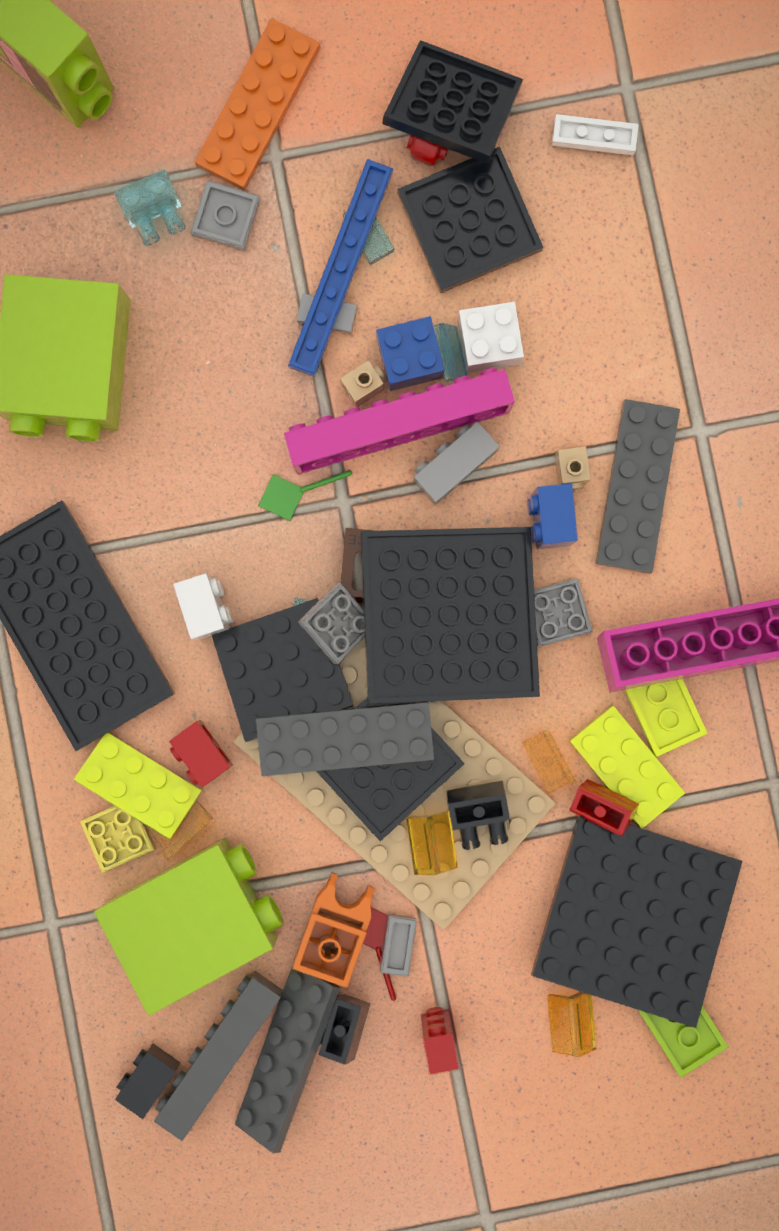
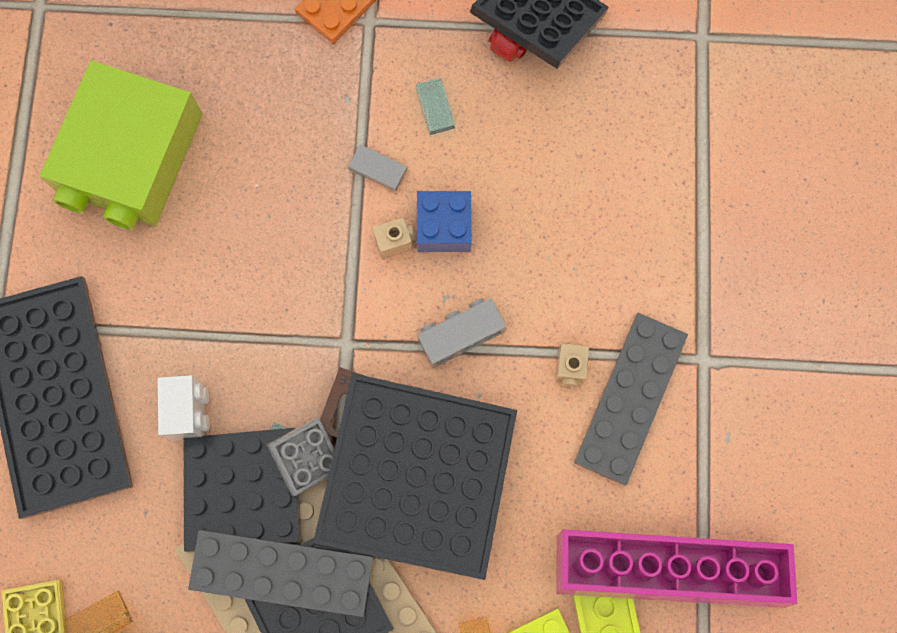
camera: 10 degrees right, 10 degrees down
(138, 785) = (68, 569): neon yellow plate -> none
(149, 200) = (241, 31): clear light blue brick -> none
(200, 754) = (137, 552): red brick -> none
(225, 215) = (309, 61): light grey tile -> none
(283, 496) = (291, 324): bright green piece -> none
(340, 268) = (399, 131): blue tile -> none
(399, 421) = (415, 279): dark pink brick -> none
(450, 351) = (483, 229): clear light blue tile -> none
(470, 220) = (530, 117): black plate -> none
(490, 337) = (523, 224): white brick -> none
(553, 516) = (542, 405): blue piece -> none
(560, 613) = (527, 502): light grey tile -> none
(595, 134) = (663, 69): white plate -> none

